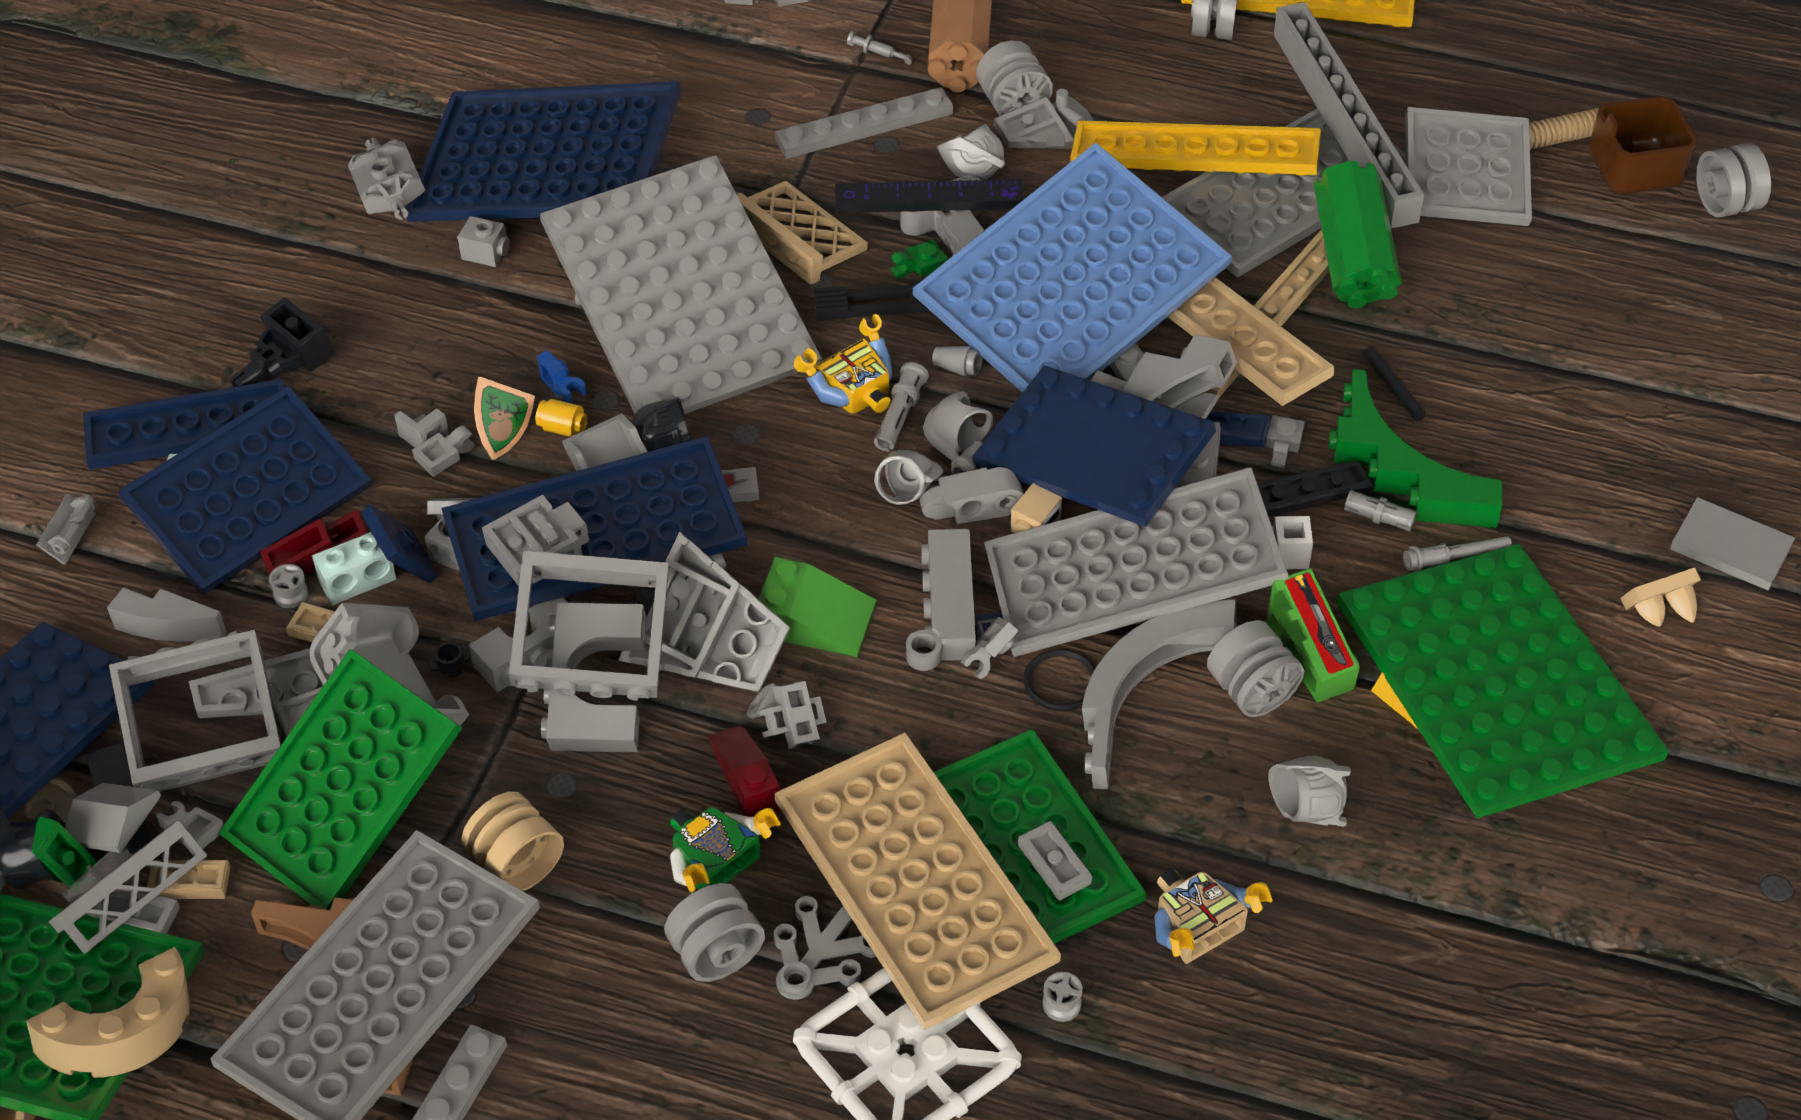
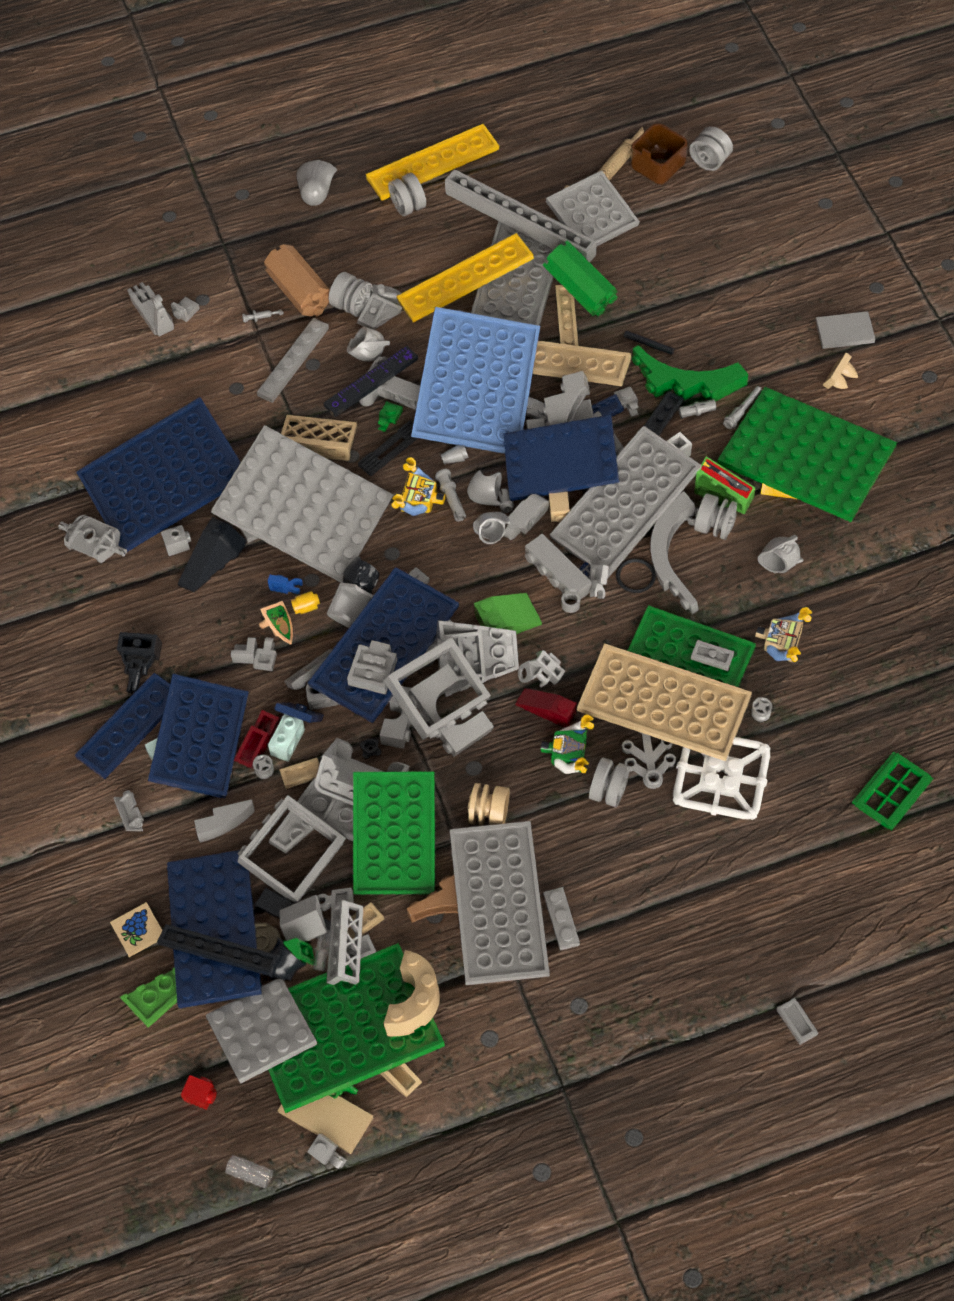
camera: 35 degrees left, 10 degrees up
(517, 280) = (213, 550): none -> black wedge

